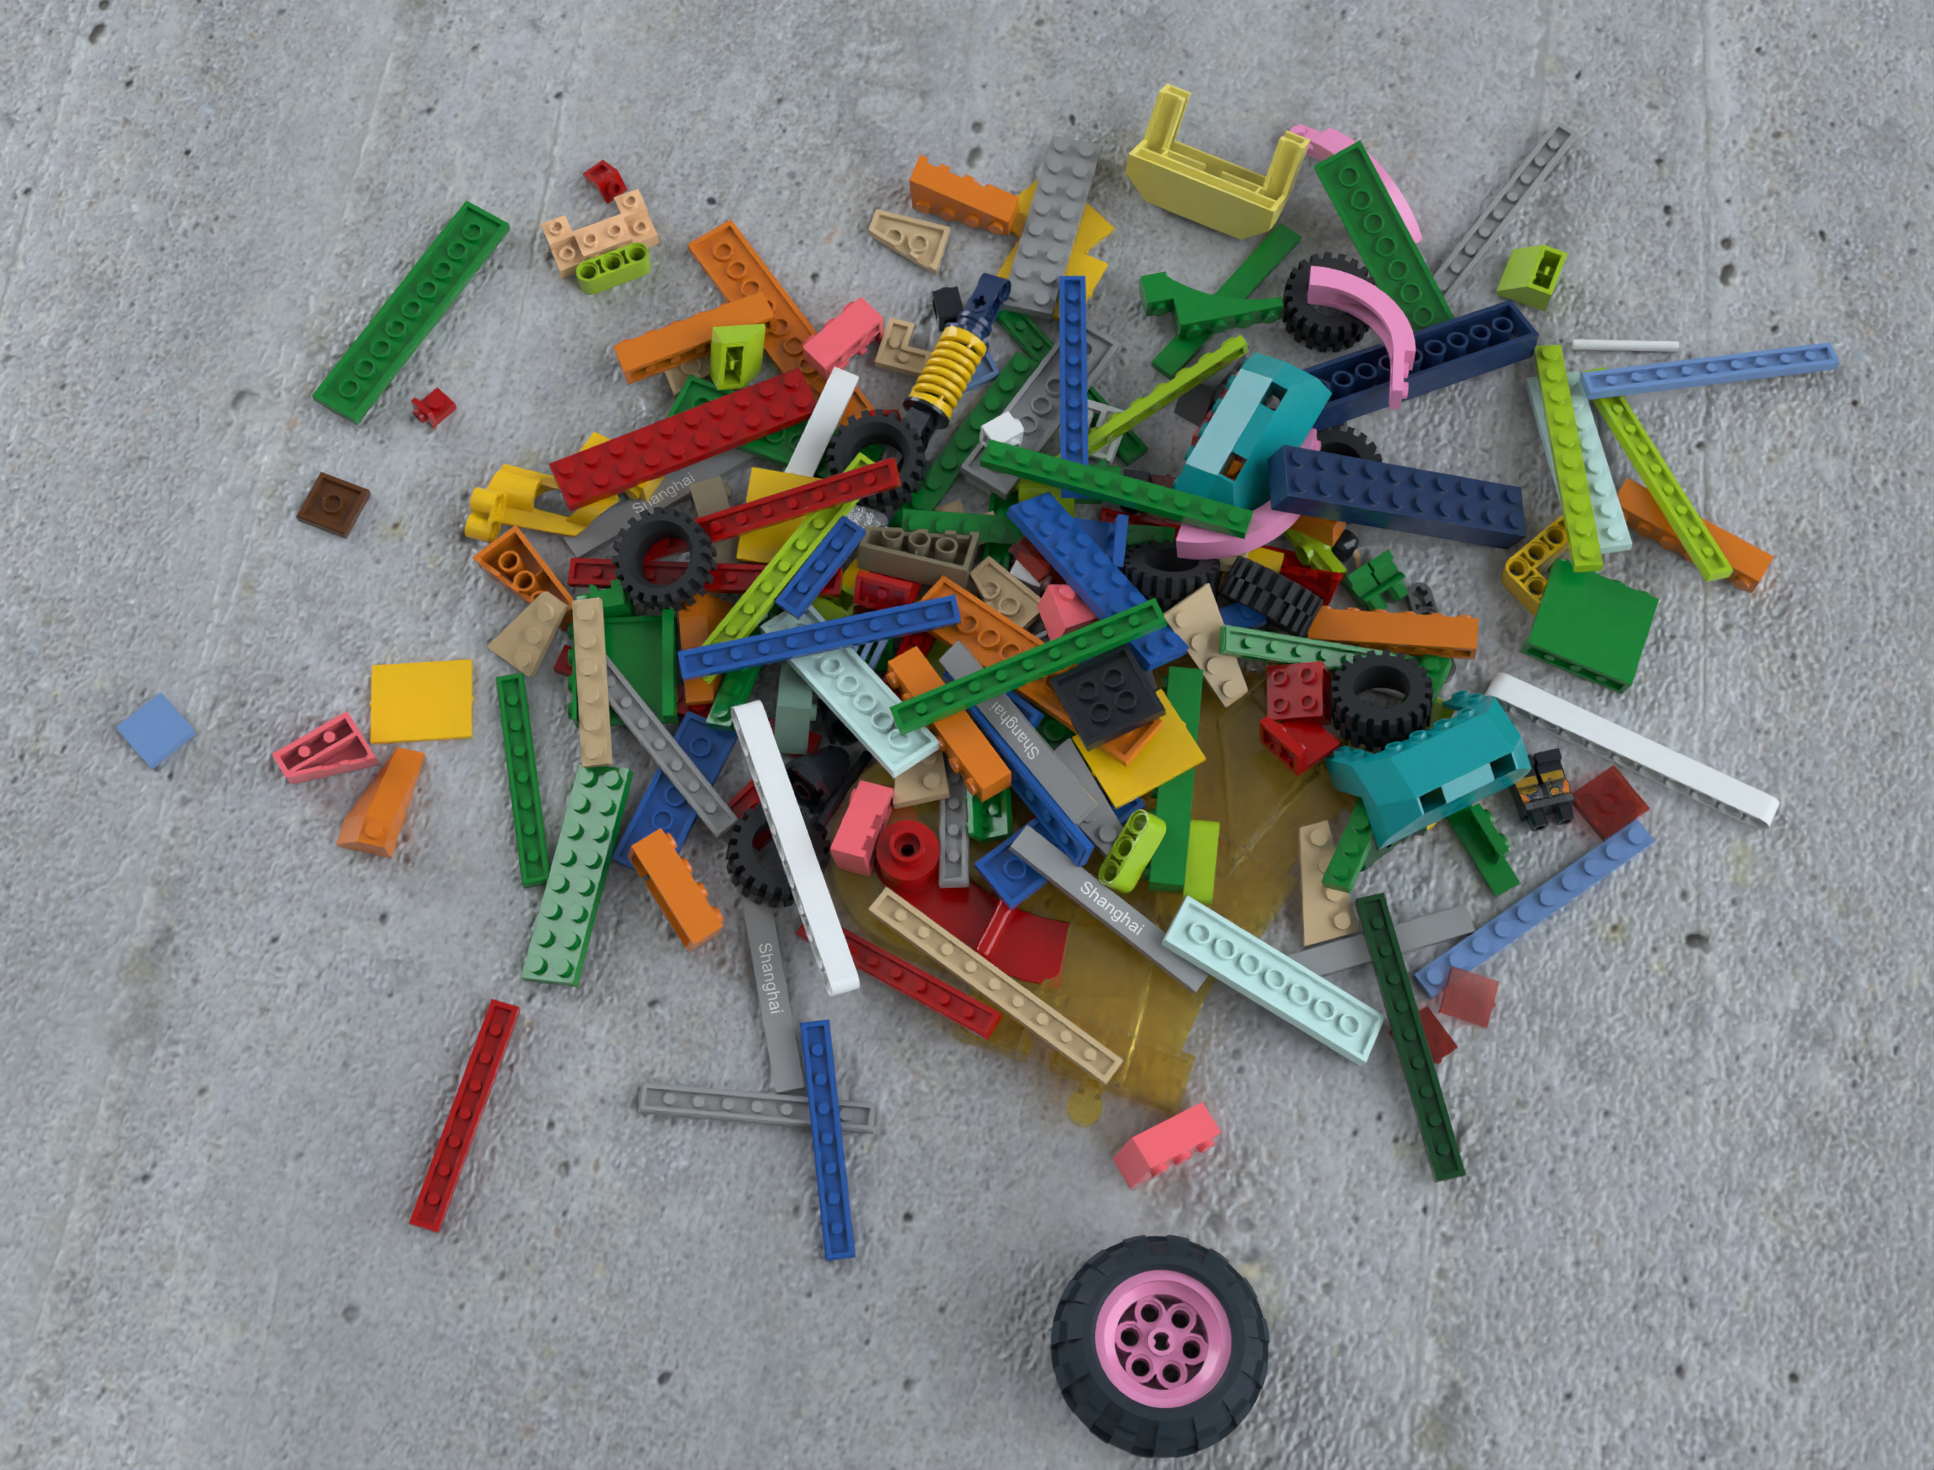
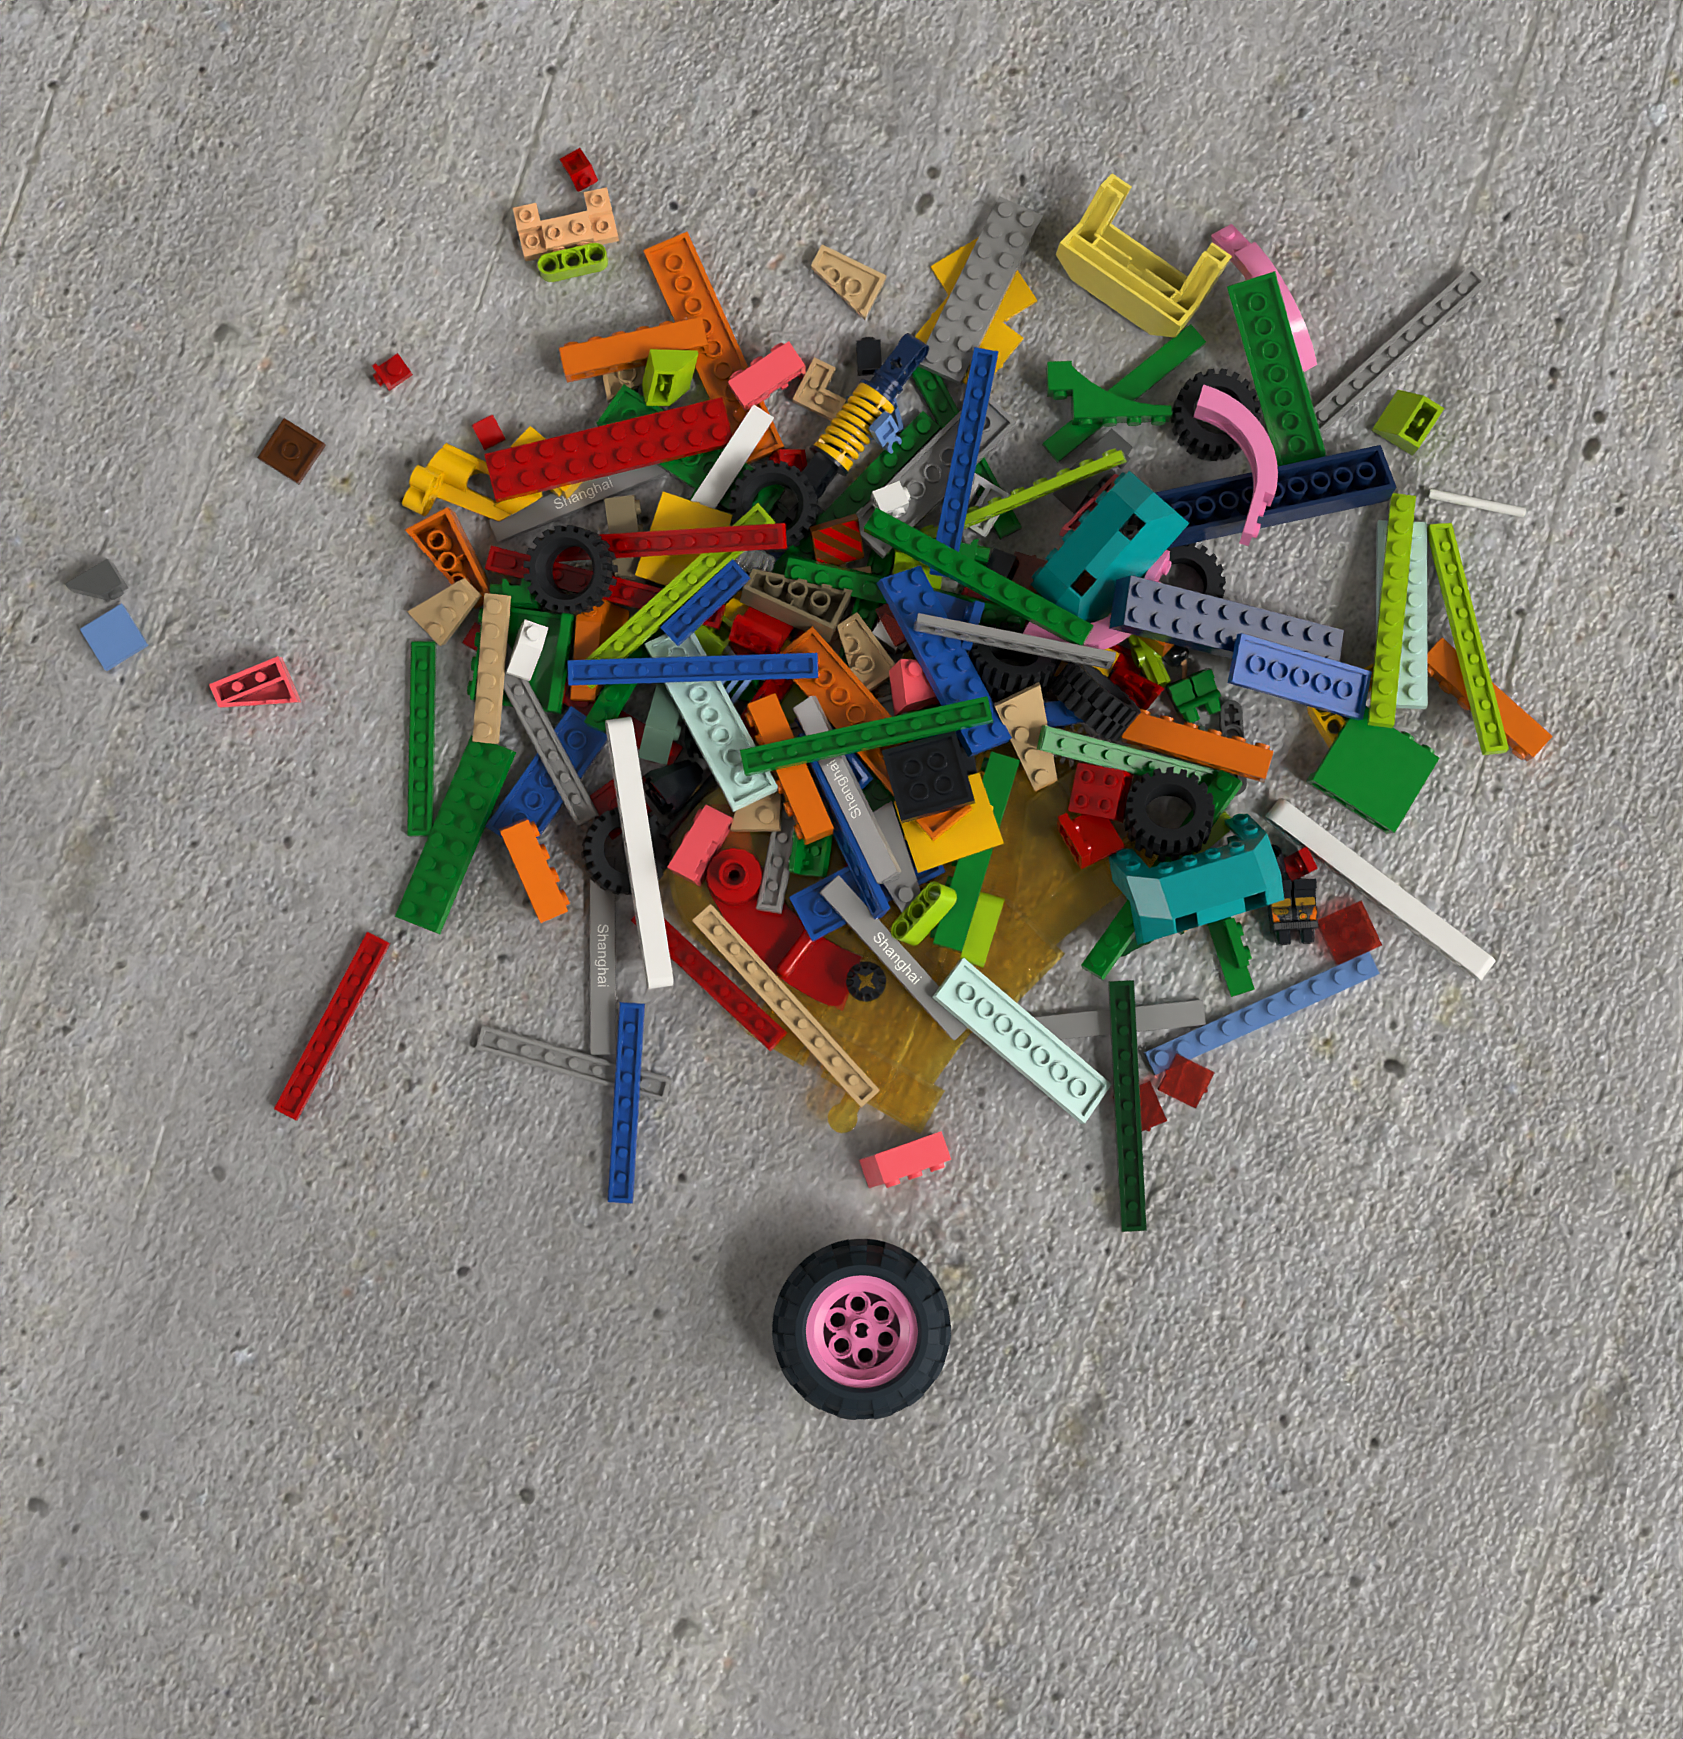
camera: 10 degrees right, 15 degrees up
(131, 674) = (100, 582): none -> dark grey slope
(381, 810) = (297, 743): orange wedge -> none
(411, 312) = (385, 272): green plate -> none
(421, 701) = (344, 651): yellow piece -> none
(548, 448) = (488, 432): none -> red slope
(629, 654) = (526, 650): none -> white slope
(953, 485) = (837, 541): none -> reddish brown tile
(962, 198) = (902, 250): orange wedge -> none
(980, 370) = (884, 431): none -> medium blue plate
(1085, 955) = (867, 993): none -> black gear
(1170, 542) = (1014, 641): none -> light grey tile
(1324, 910) = (1079, 986): tan wing -> none
(1488, 531) = (1299, 676): none -> plate
(1538, 735) = (1299, 864): none -> red bracket
(1708, 370) = (1544, 546): medium blue plate -> none

